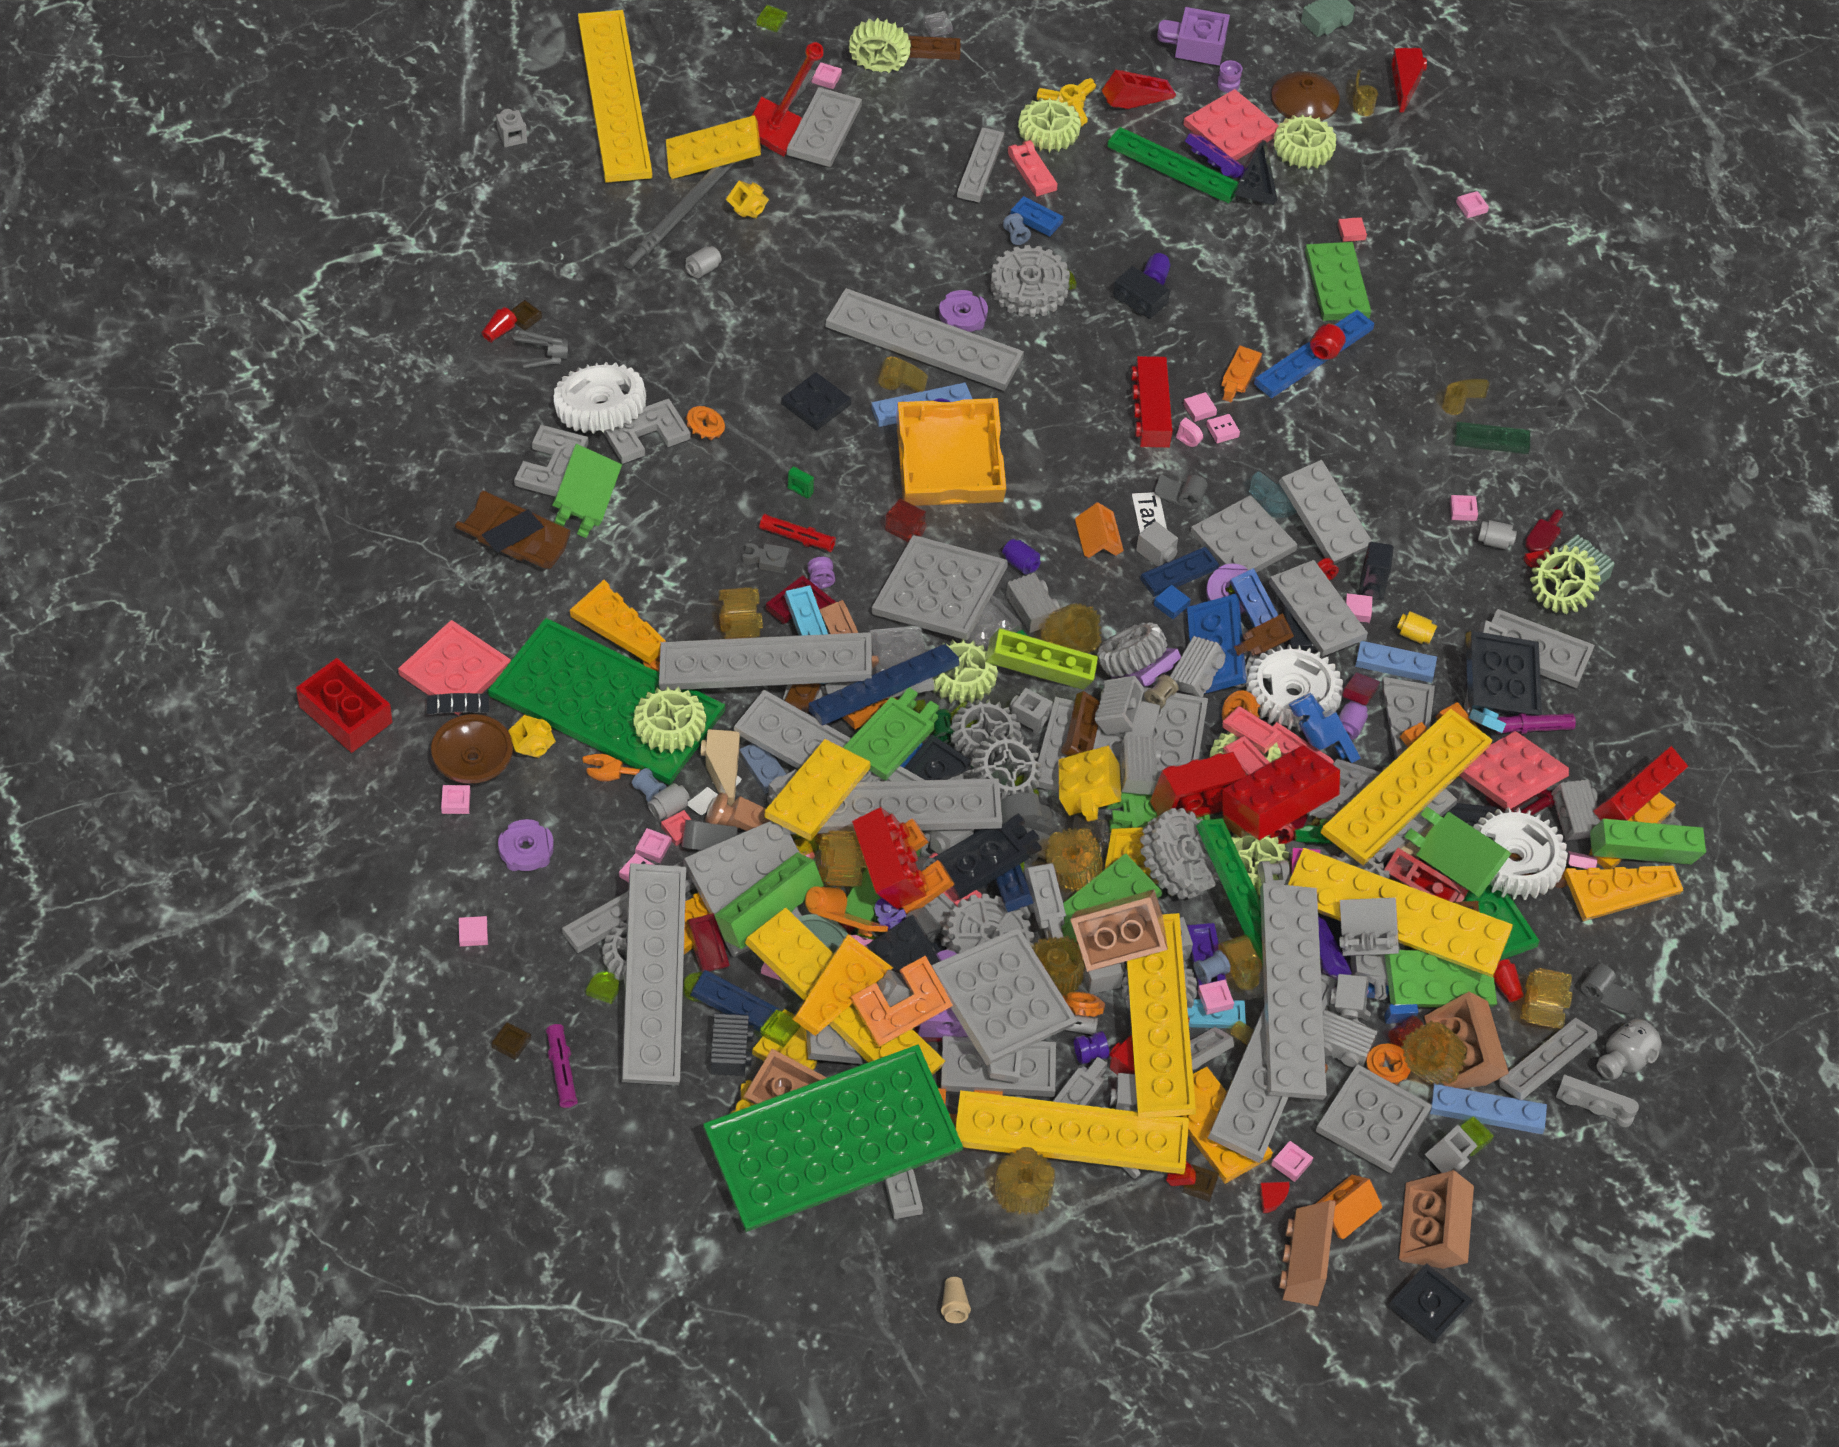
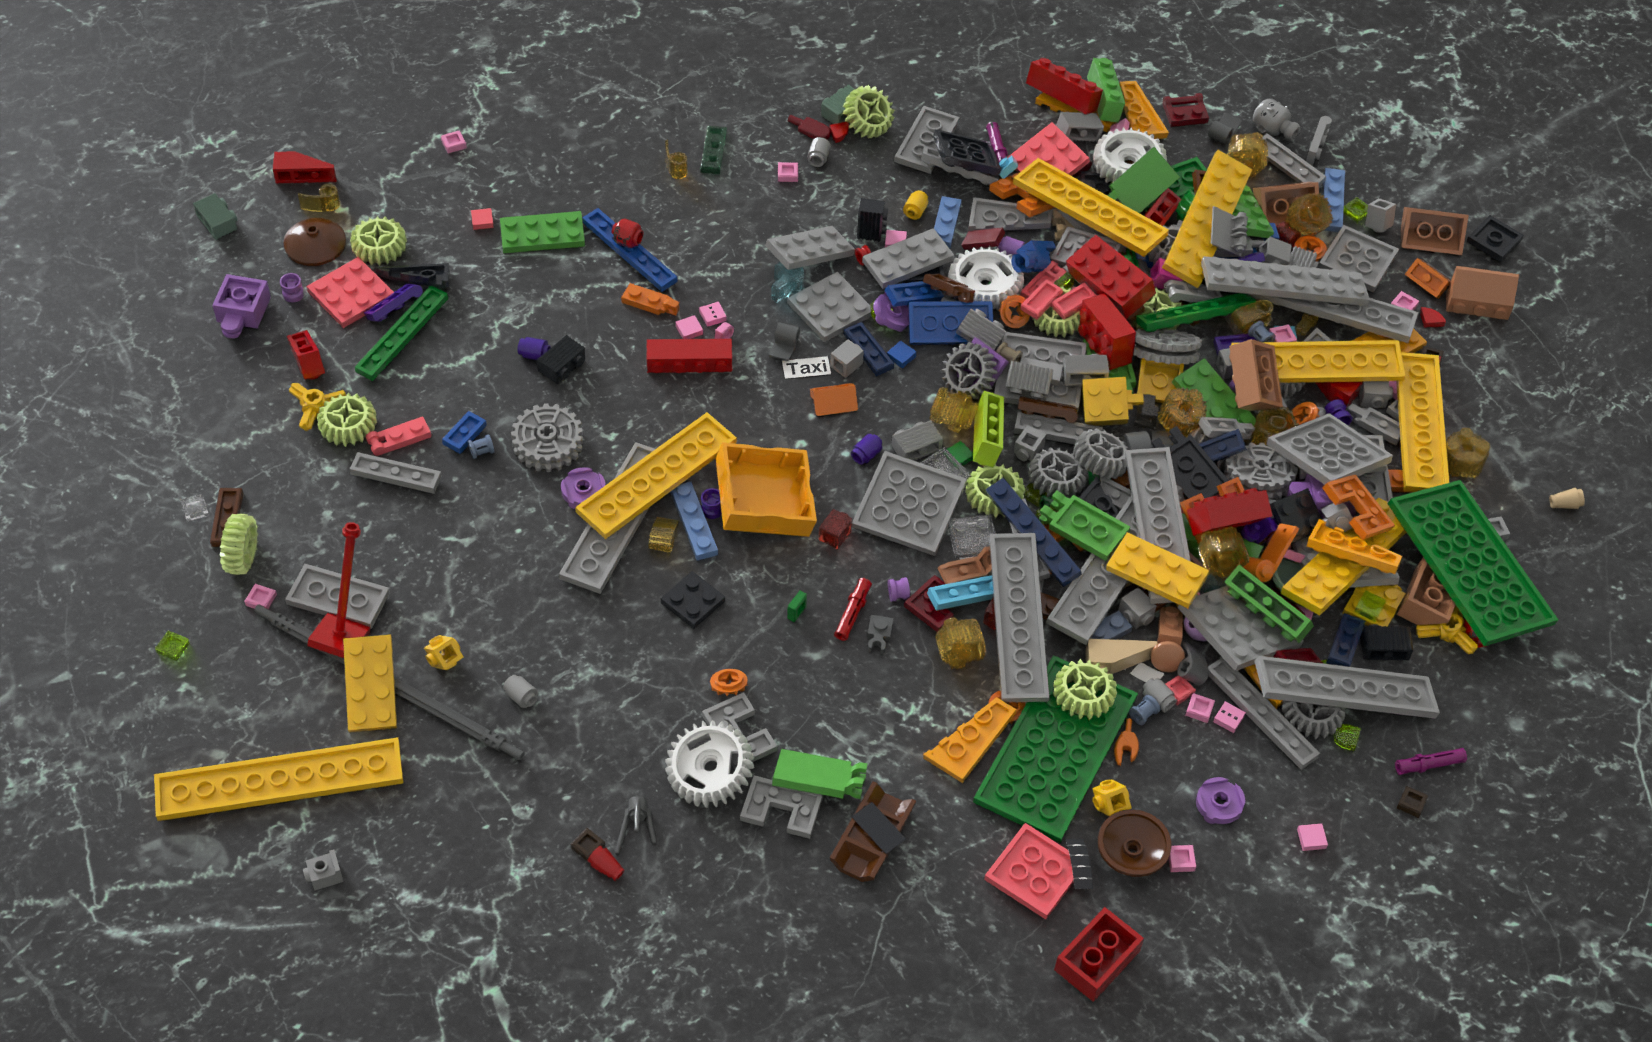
camera: 90 degrees left, 0 degrees up
(972, 362) = (654, 476): none -> yellow plate
(1633, 952) = (1185, 115): none -> dark red plate

